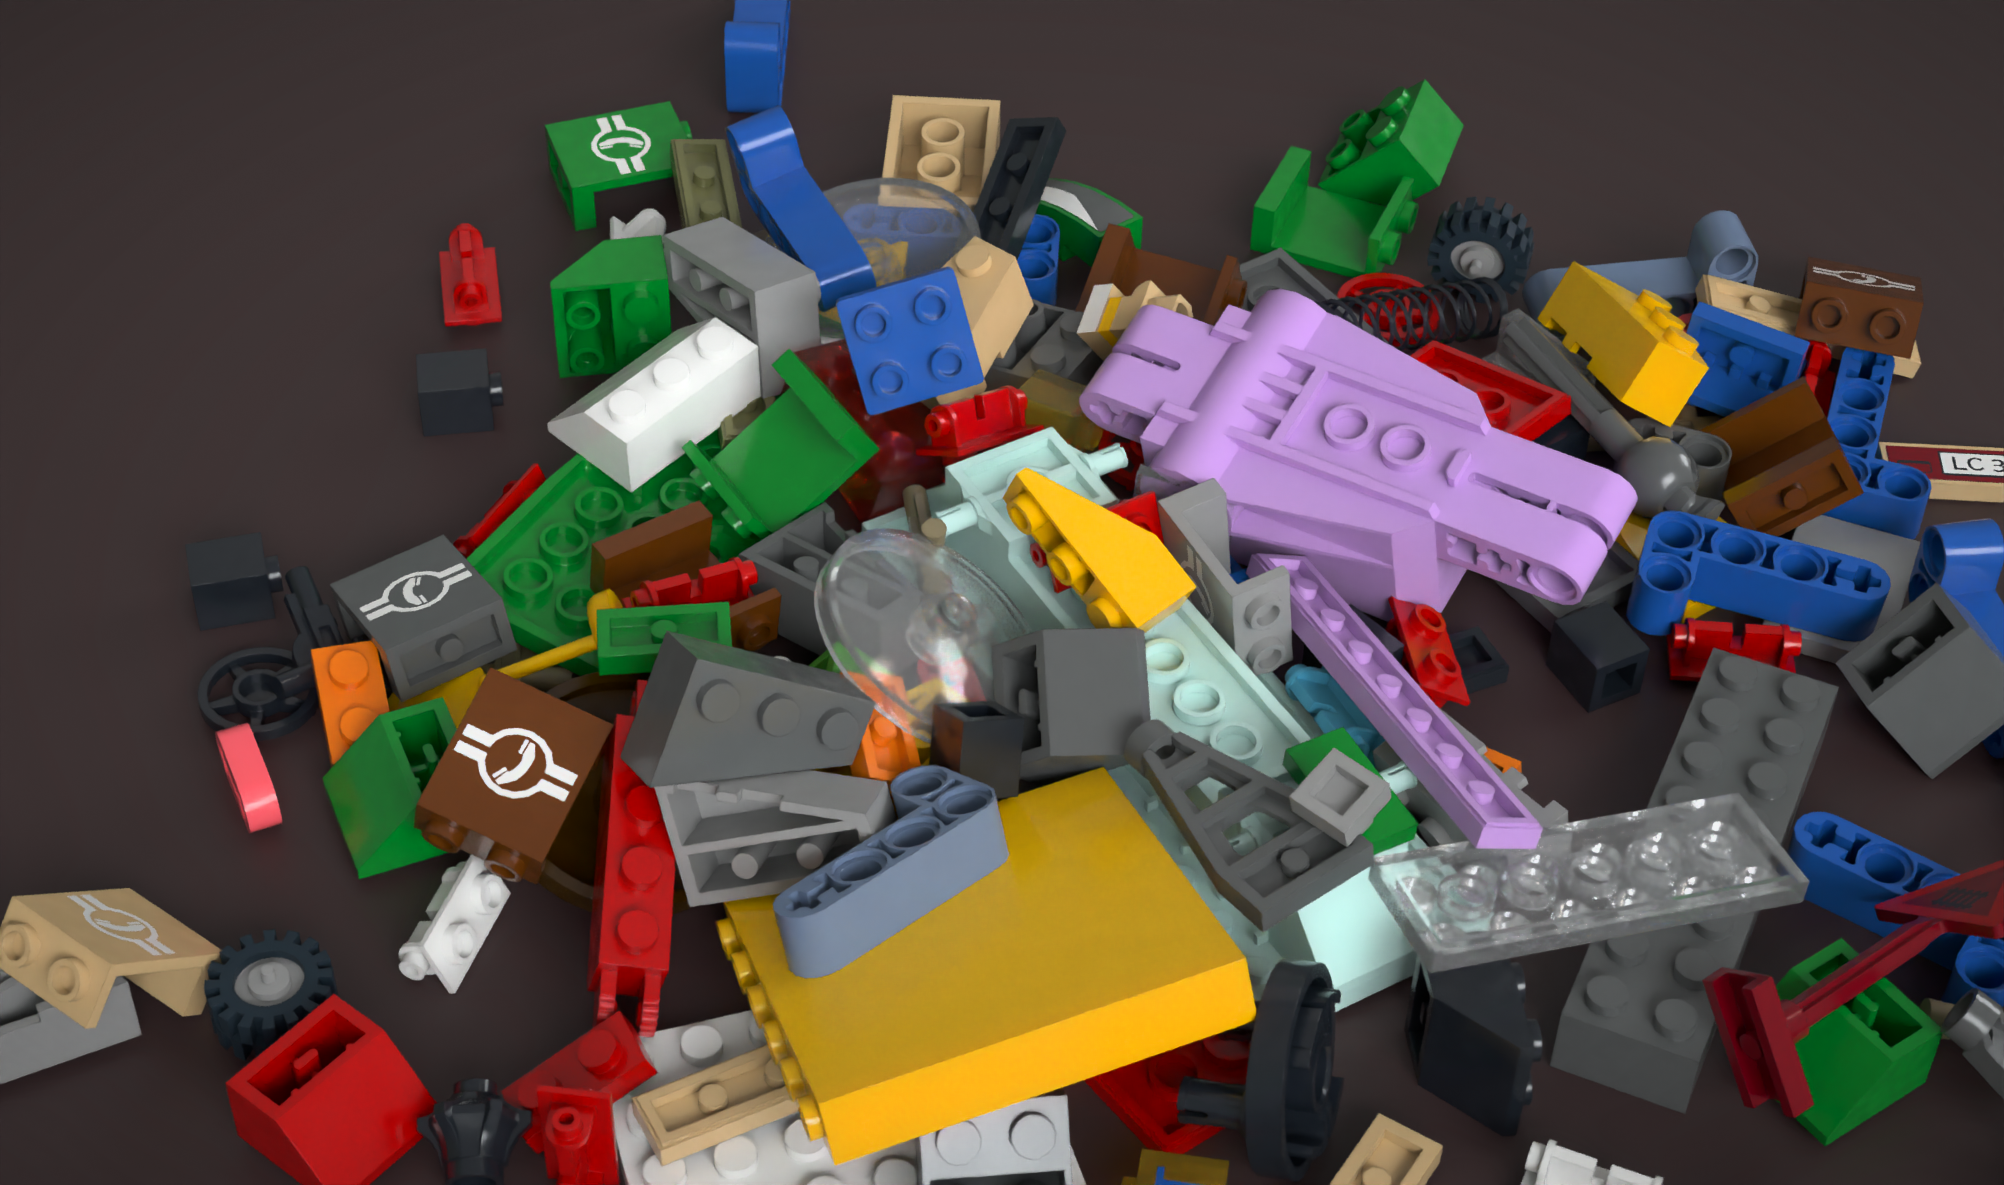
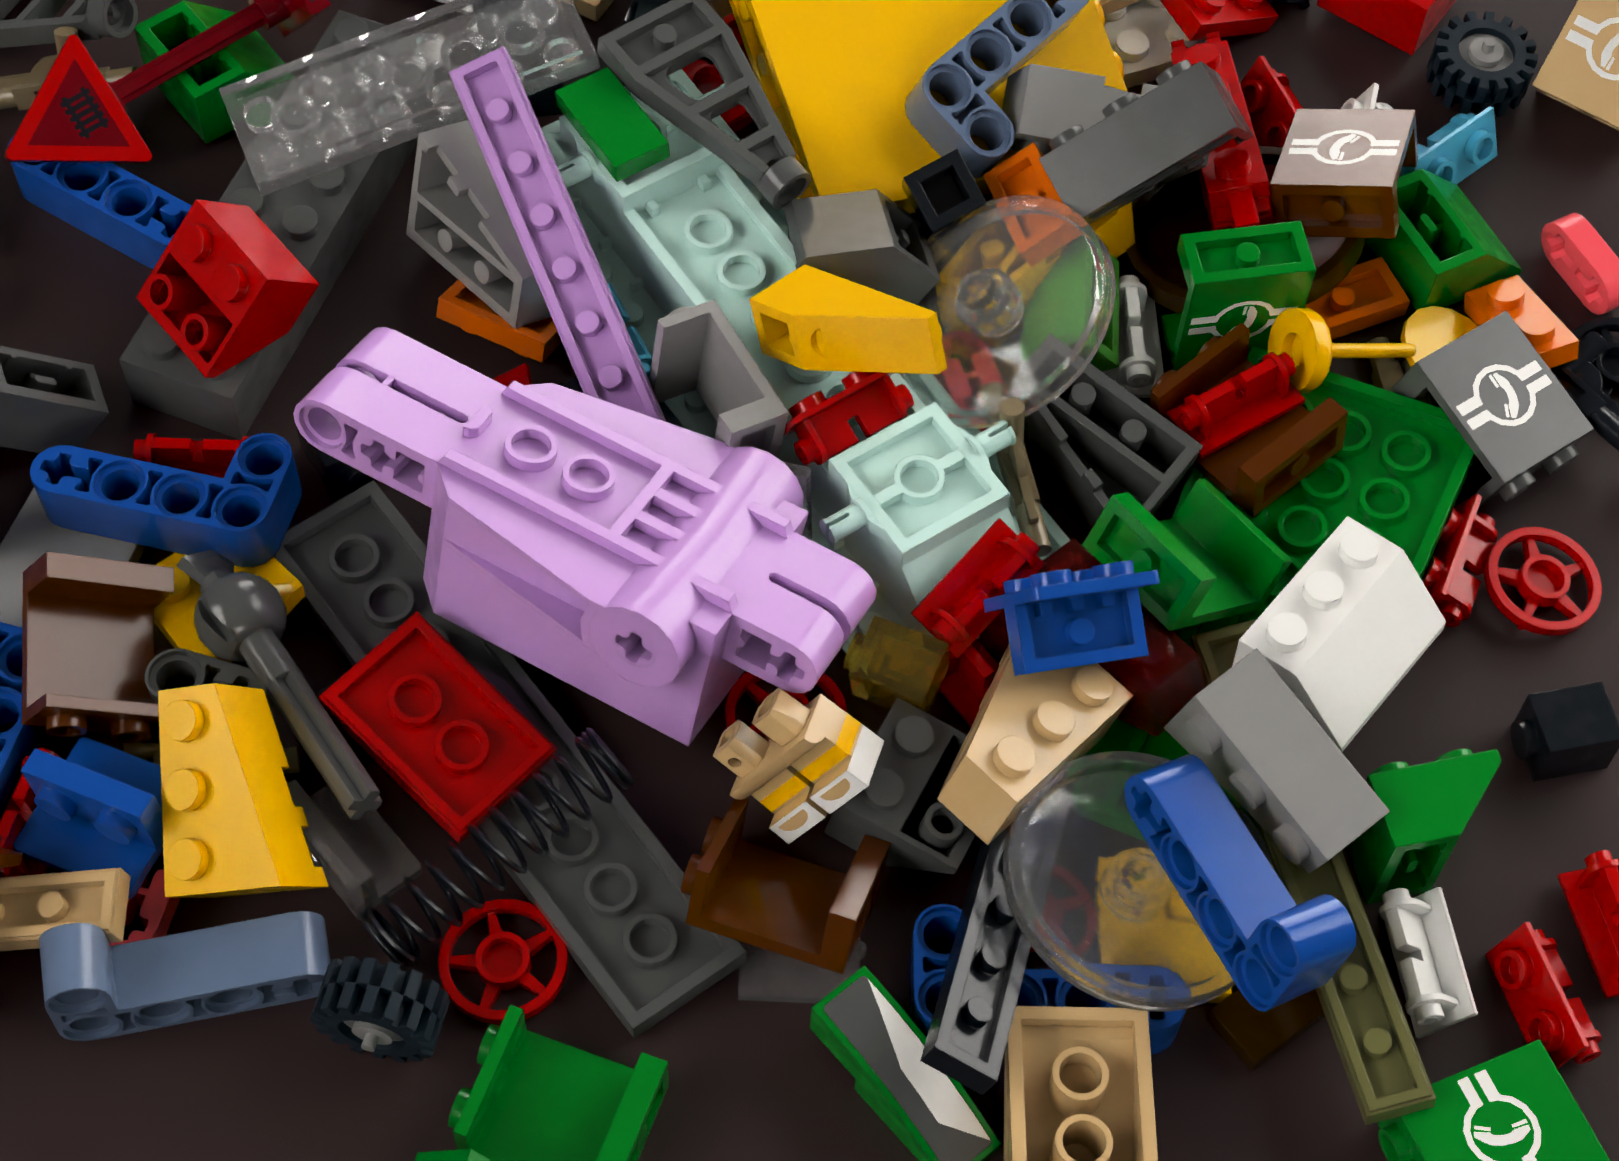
camera: 175 degrees right, 15 degrees up
(379, 890) = (1459, 147): none -> medium azure hinge
(423, 511) = (1542, 581): none -> red wheel
(535, 937) = (1269, 103): none -> red hinge
(543, 241) = (1535, 987): none -> red hinge
(1340, 797) = (625, 53): light grey tile -> none
(1740, 689) = (225, 286): none -> red slope

